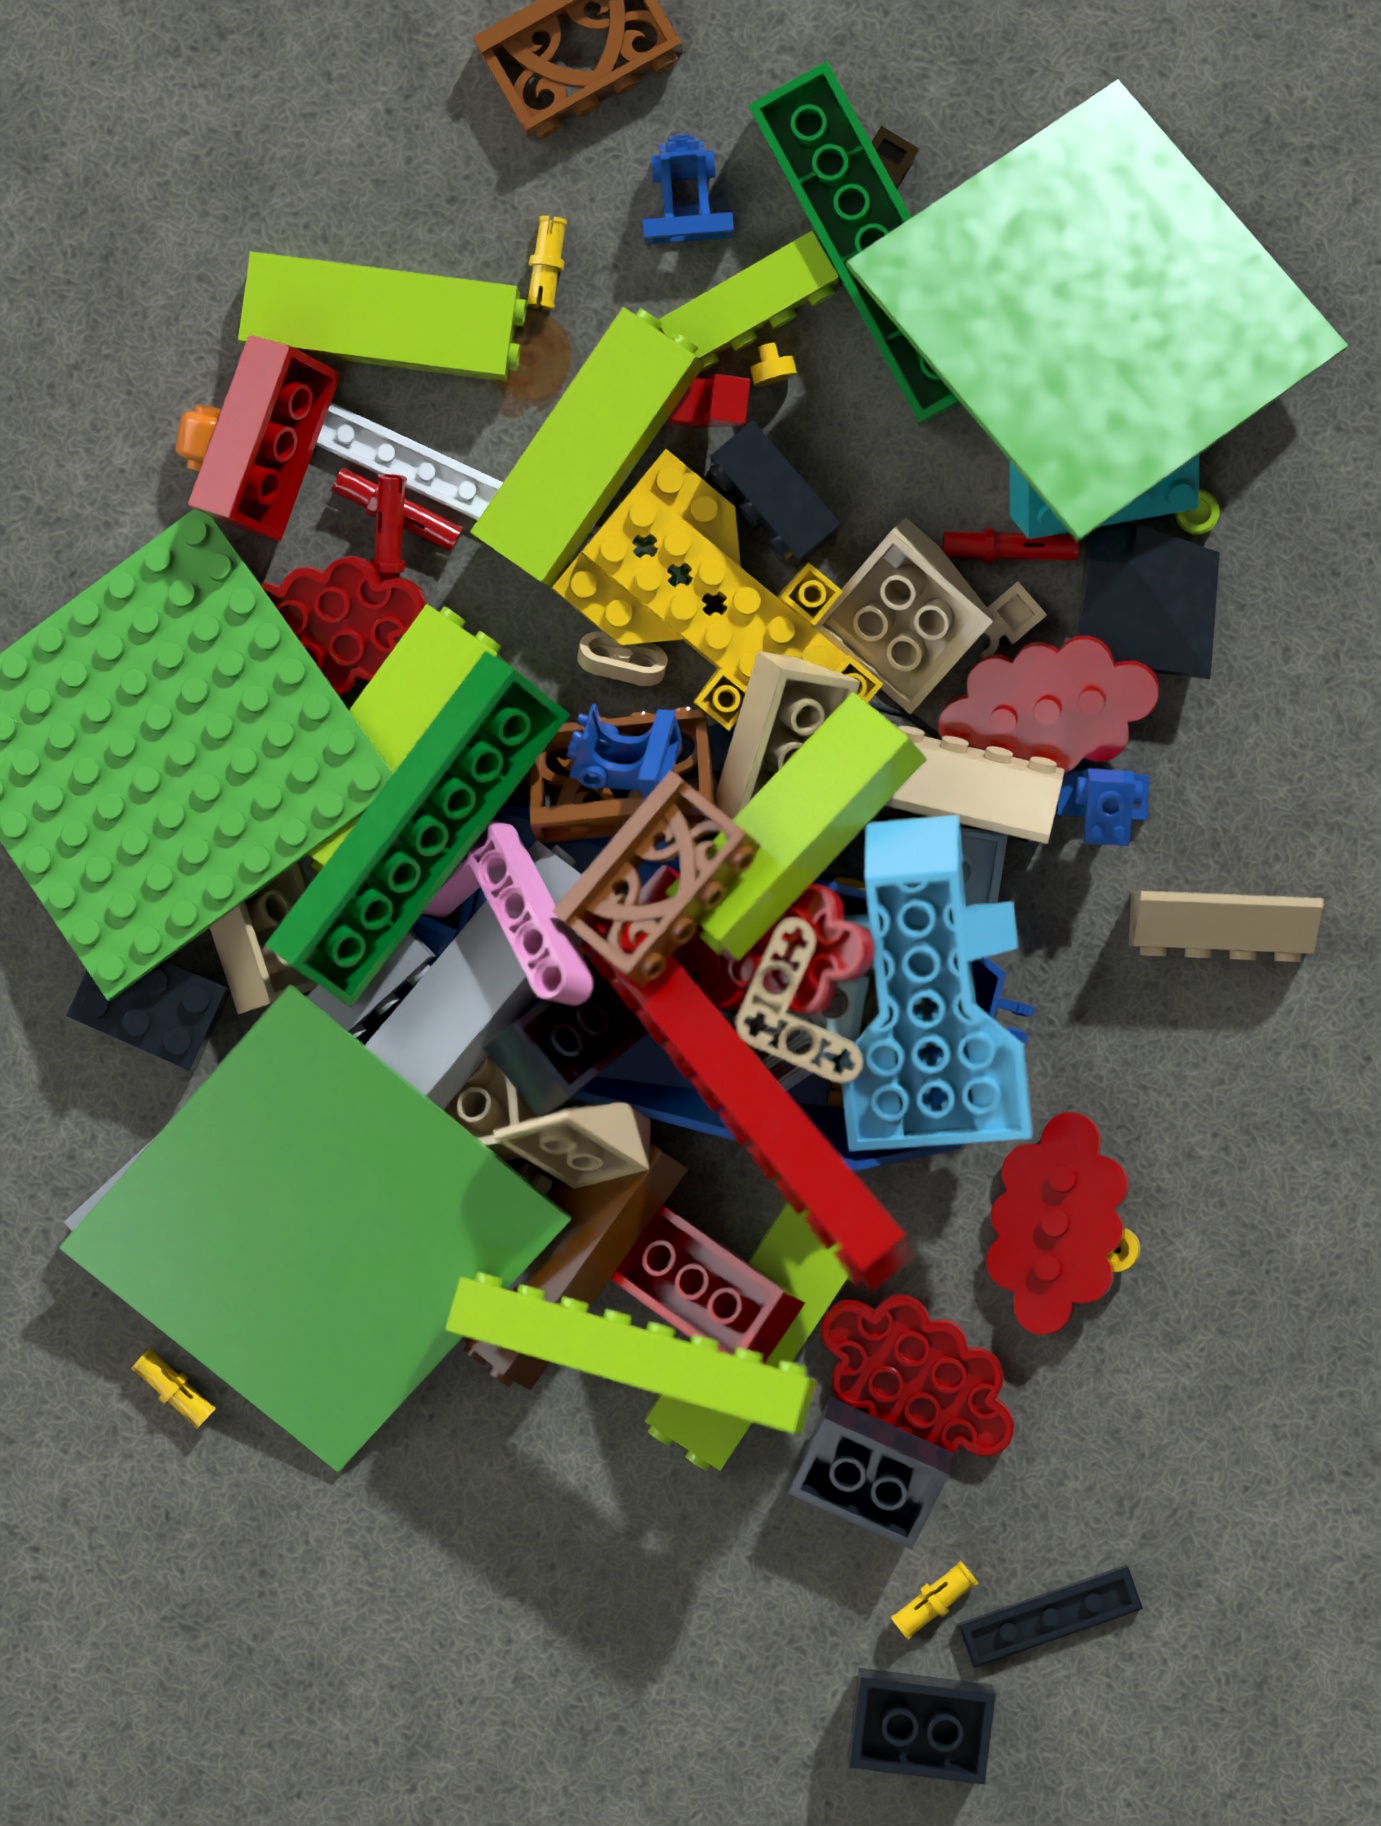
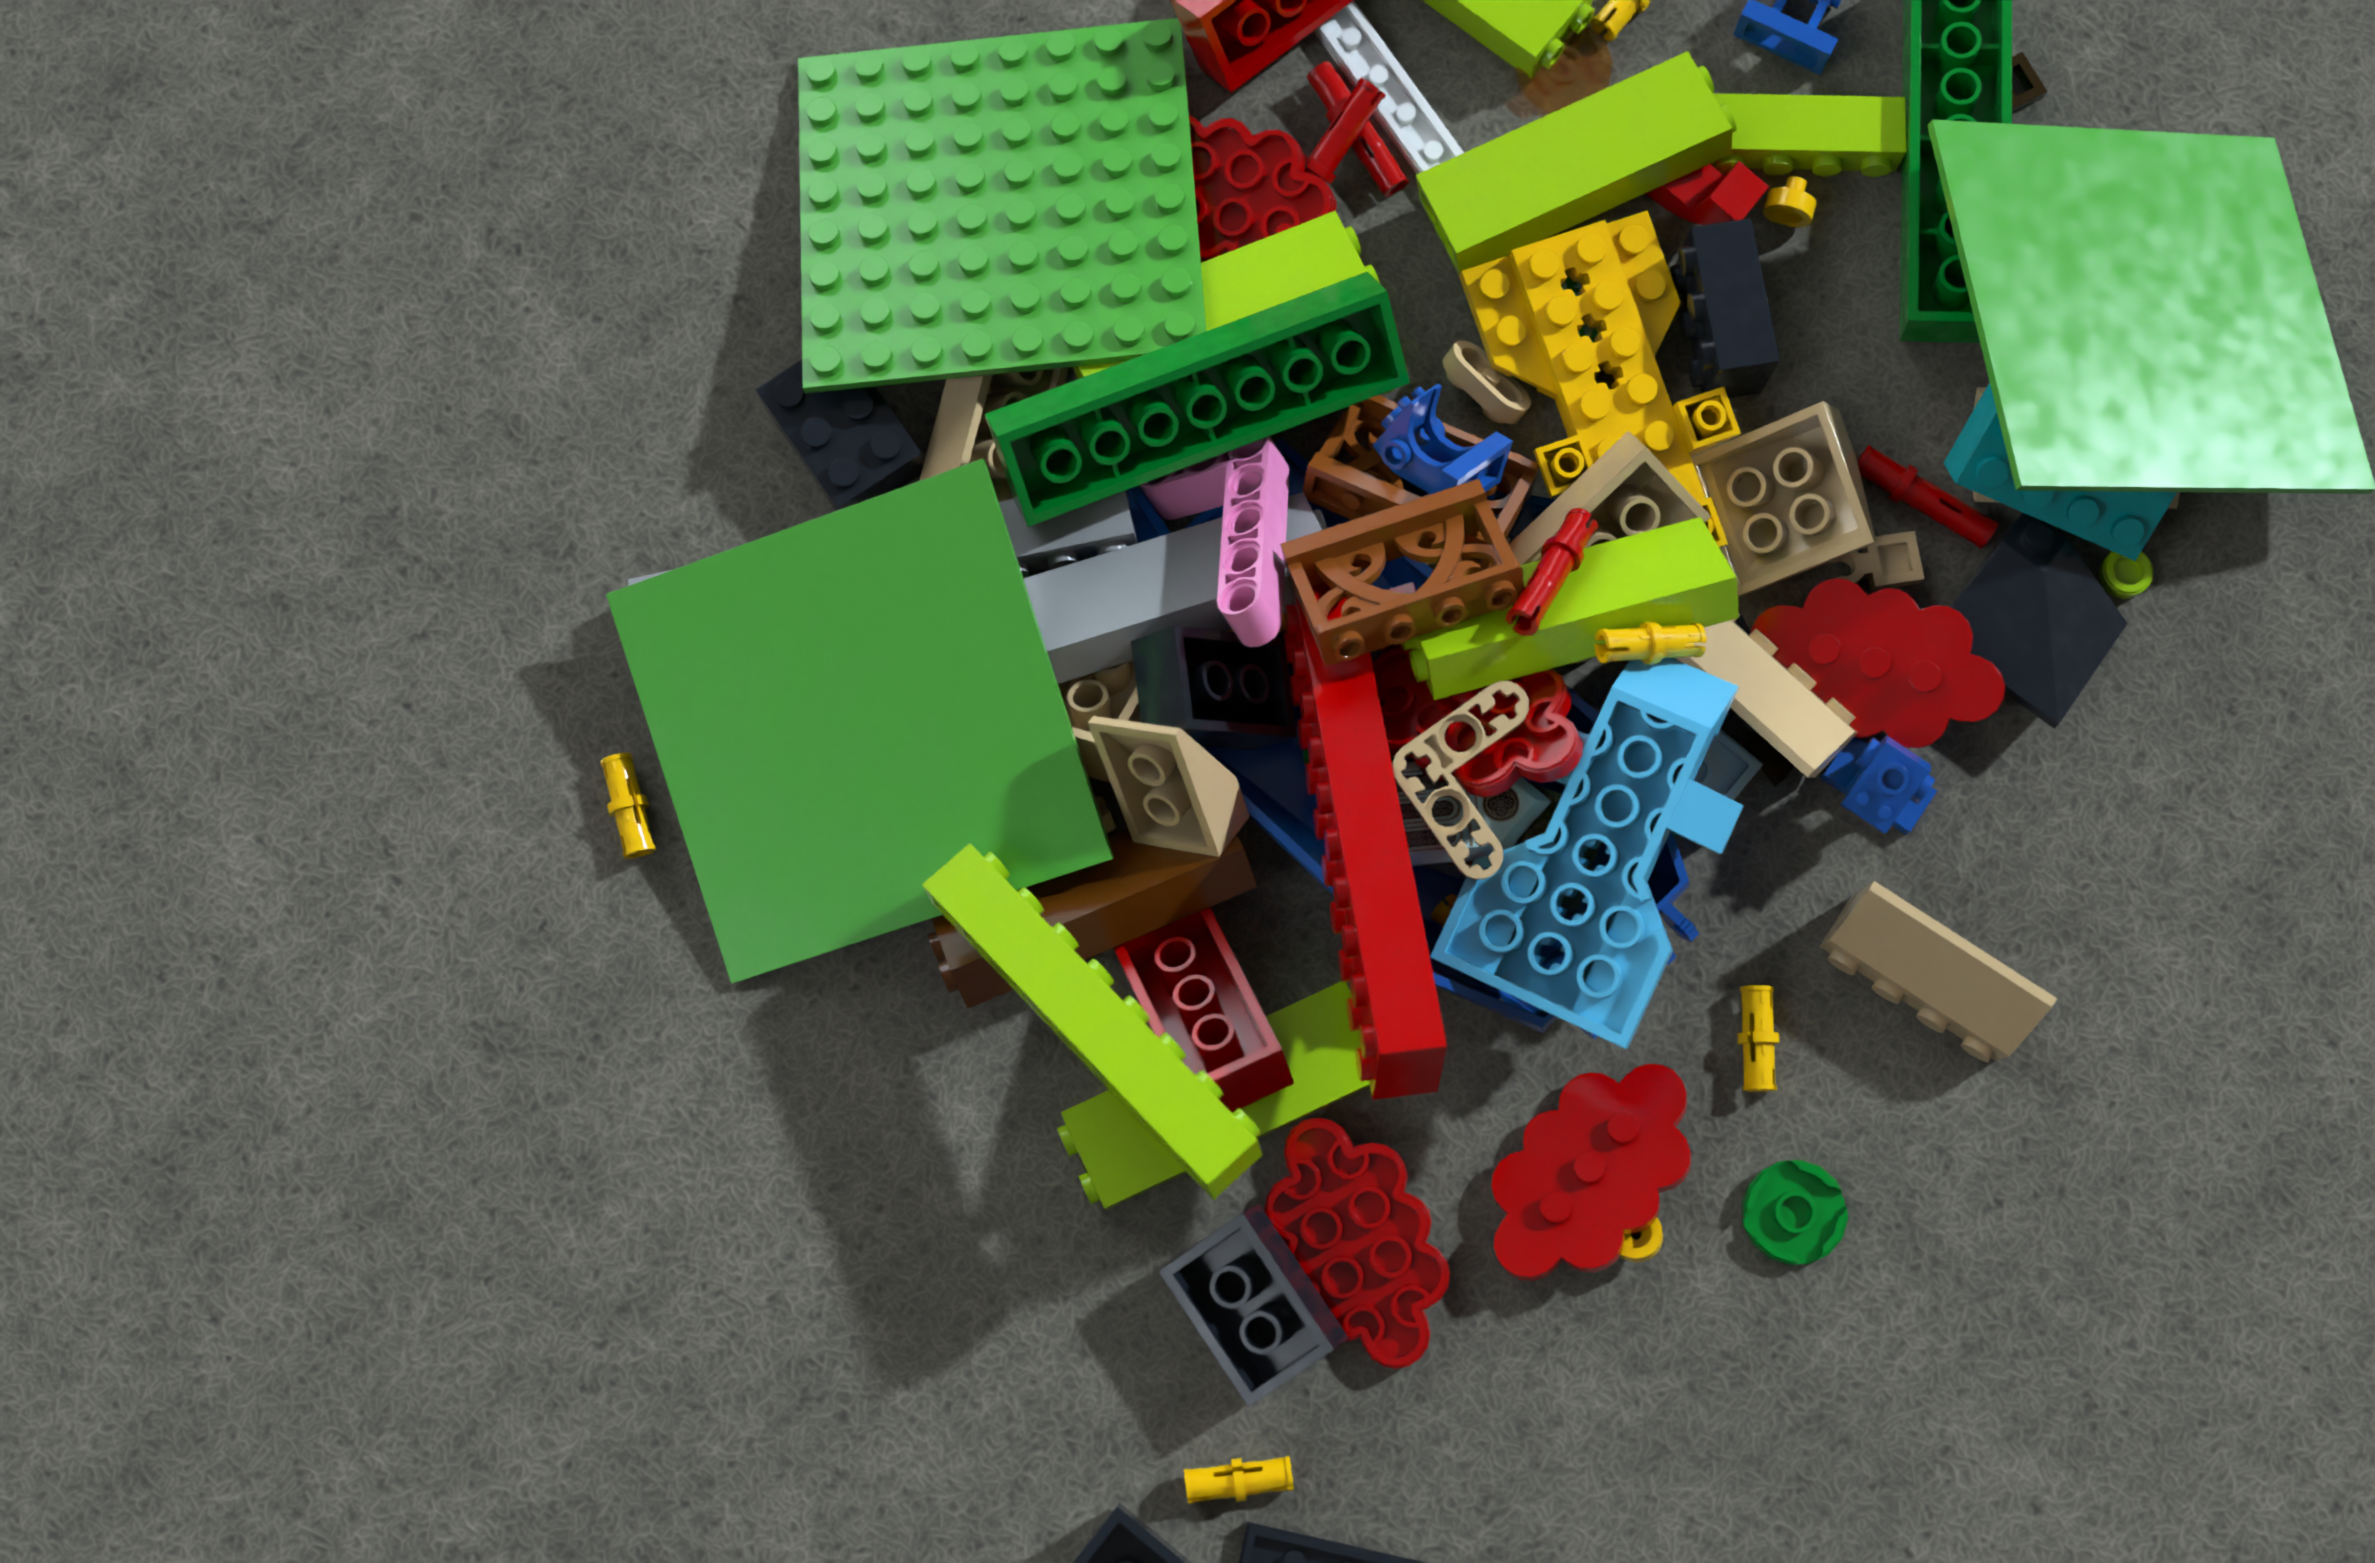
camera: 35 degrees right, 10 degrees down
(768, 795) = (1559, 558): none -> red pin
(873, 824) = (1650, 643): none -> yellow pin
(1123, 1046) = (1758, 1038): none -> yellow pin
(1207, 1159) = (1775, 1213): none -> green tile

